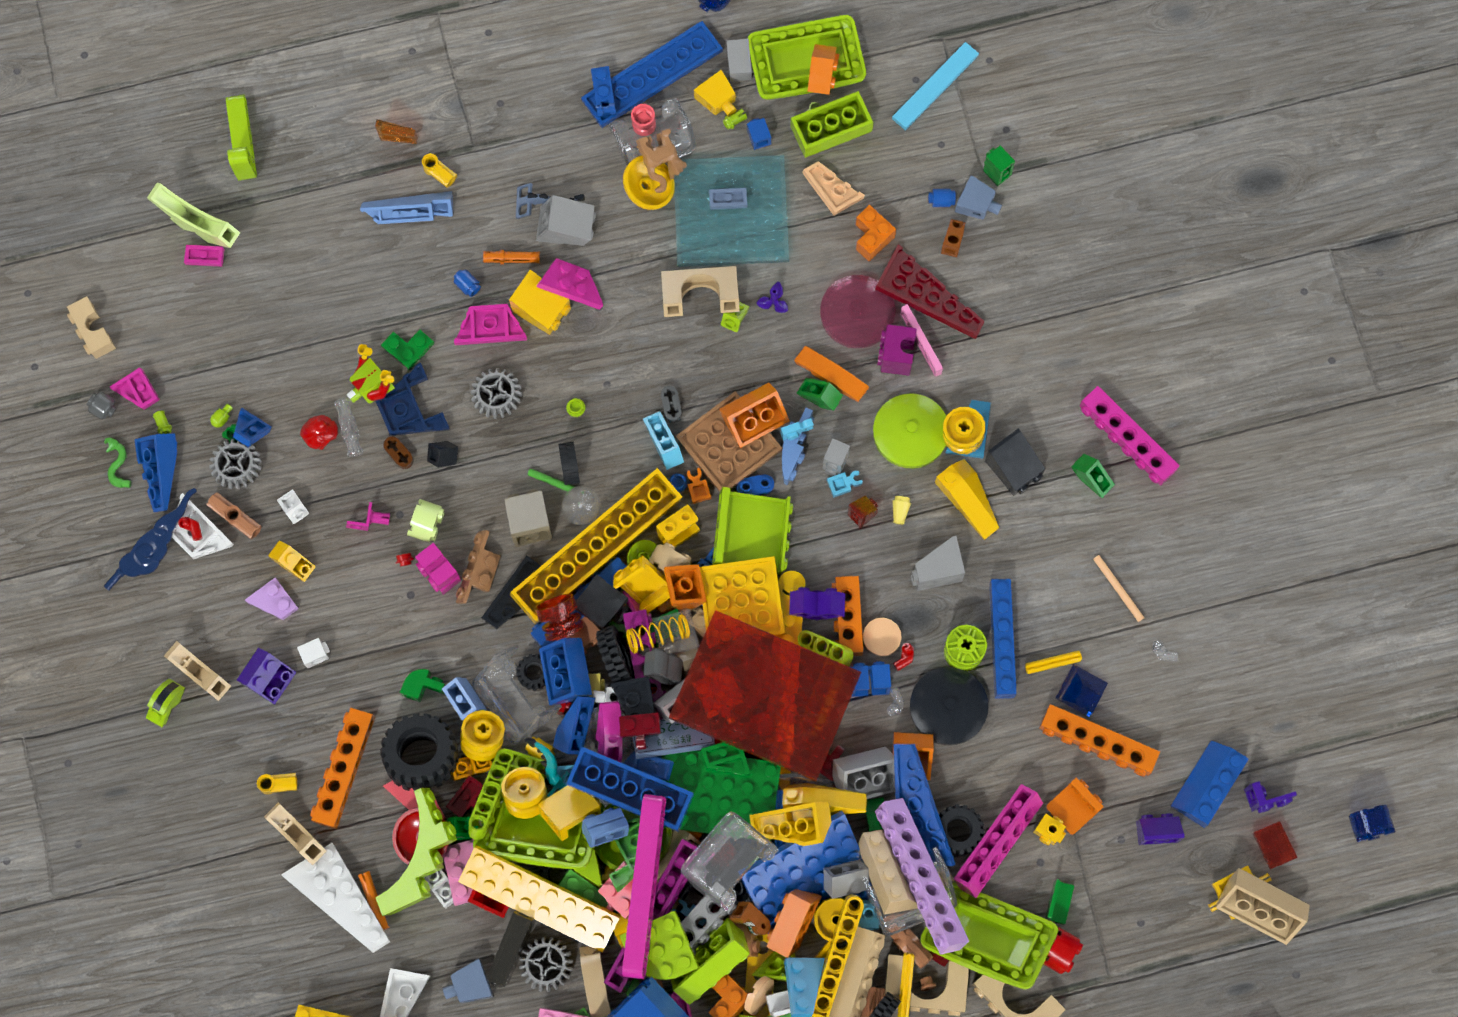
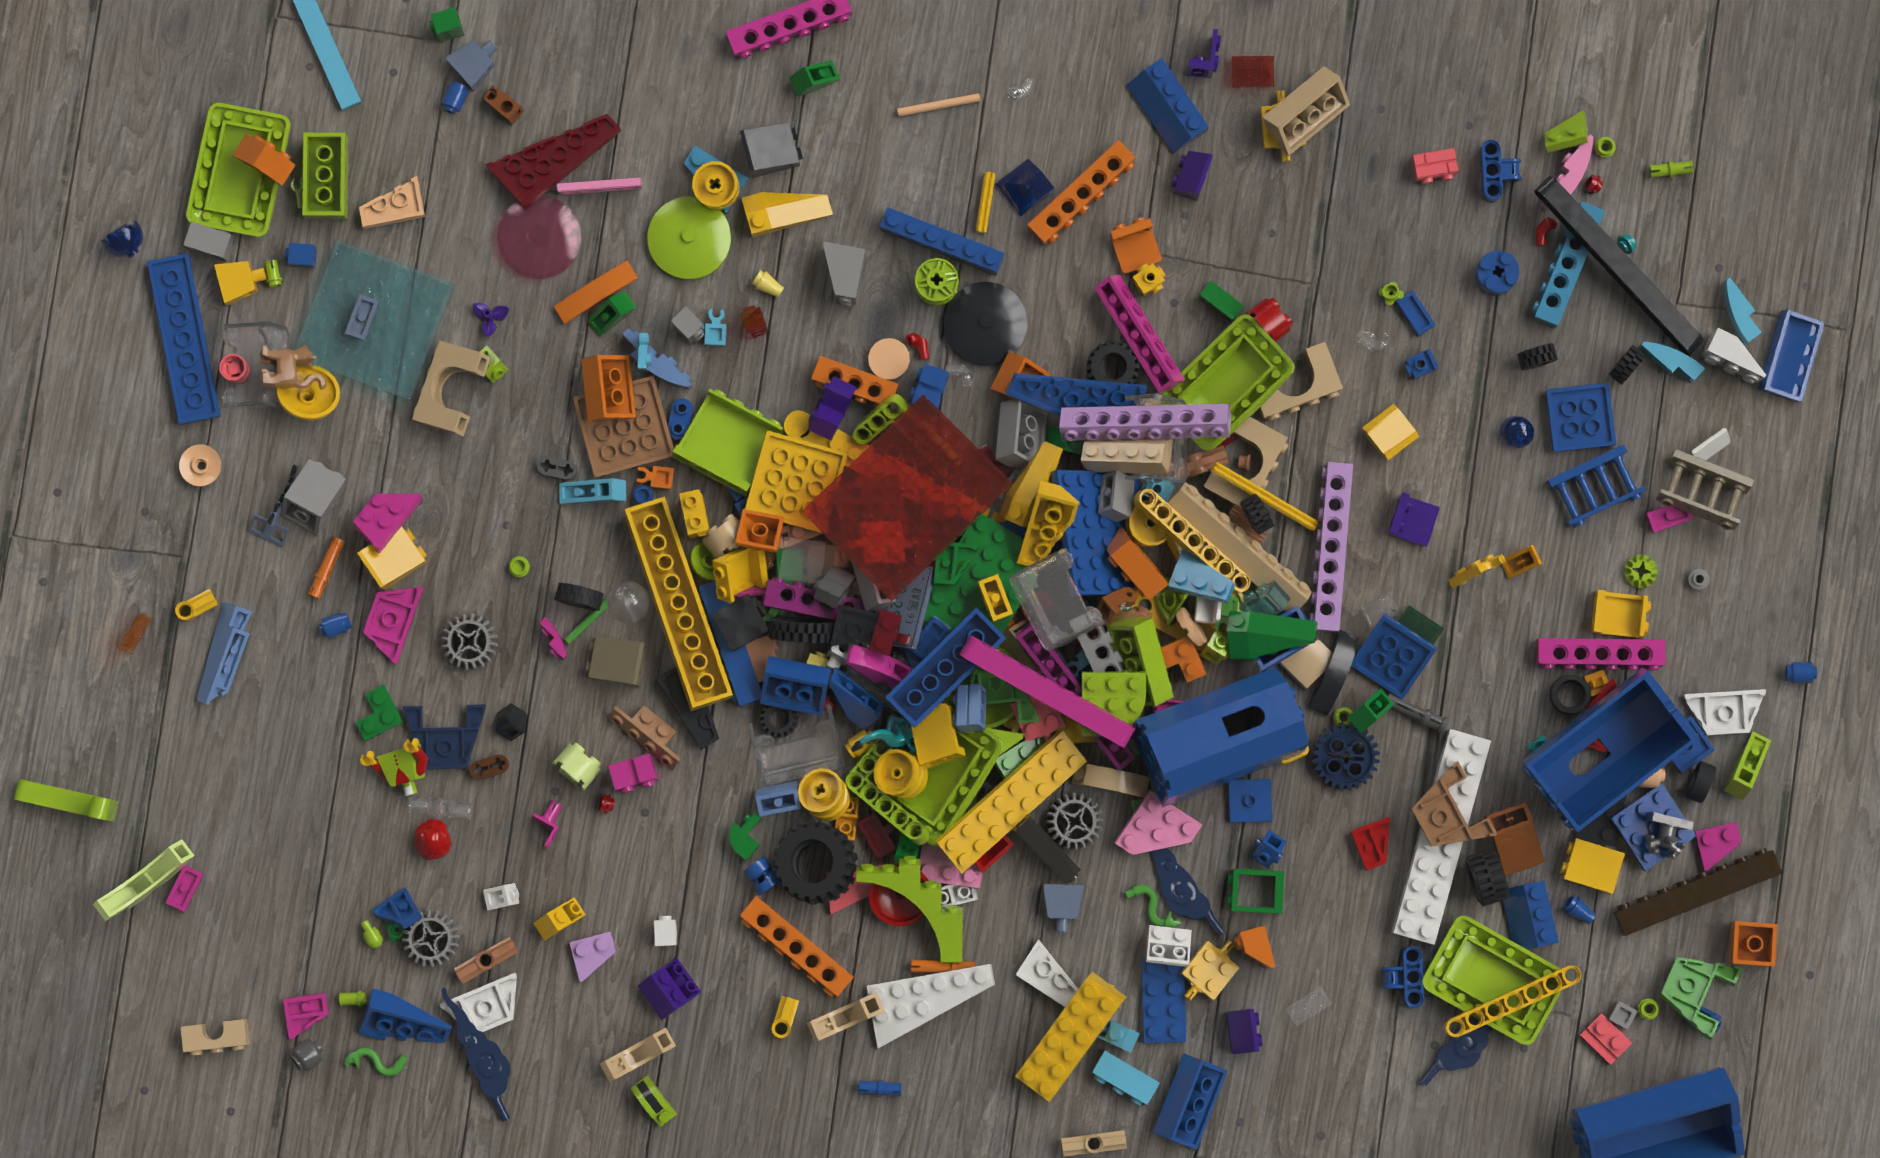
camera: 70 degrees left, 10 degrees up
(192, 526) = (480, 1006): red arm -> none
(246, 891) = (879, 1088): none -> blue pin
(394, 706) = (760, 868): none -> blue wheel
(523, 464) = (558, 648): none -> dark pink slope
(554, 119) = (193, 457): none -> light nougat dish
(559, 617) = (741, 668): clear red wheel -> none
(603, 90) = (183, 397): blue plate -> none
(681, 629) = (805, 554): yellow piece -> none
(709, 807) = (994, 598): none -> yellow brick
(877, 233) = (463, 179): orange brick -> none
(891, 356) = (604, 223): magenta piece -> none

